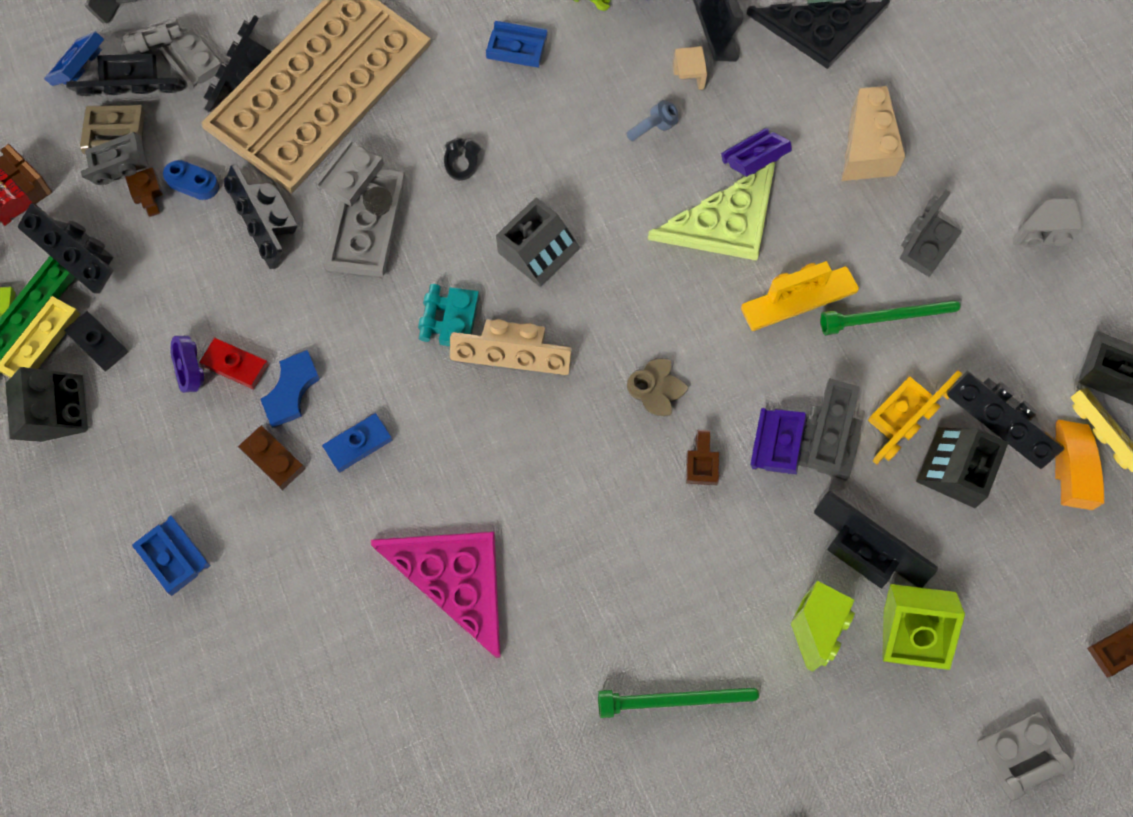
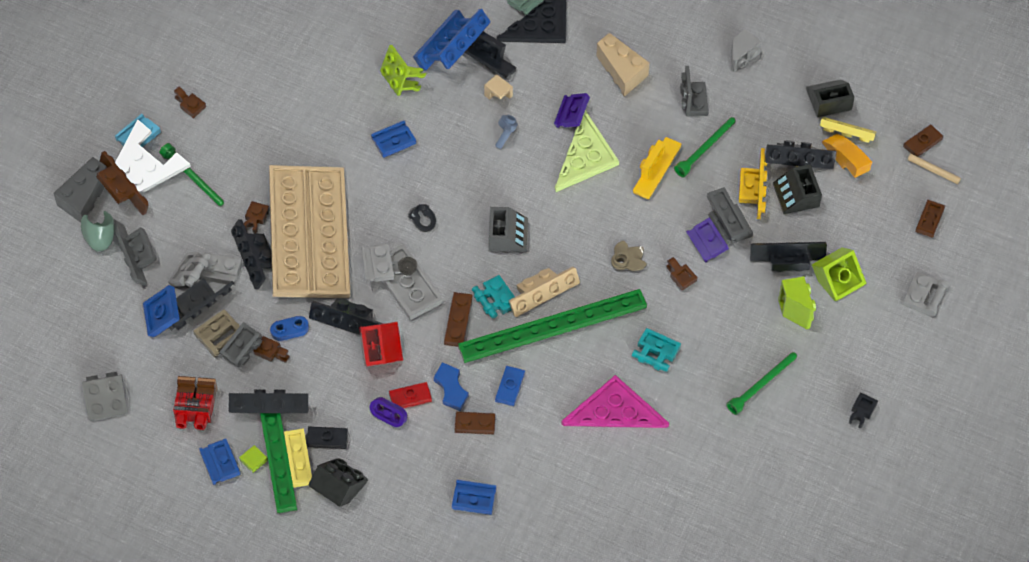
camera: 40 degrees left, 10 degrees down
(251, 272) = (381, 343): none -> red slope
(283, 27) = (256, 215): none -> reddish brown plate
(380, 311) = (458, 319): none -> reddish brown plate
(481, 406) = (552, 325): none -> green plate
(585, 535) = (659, 345): none -> teal plate

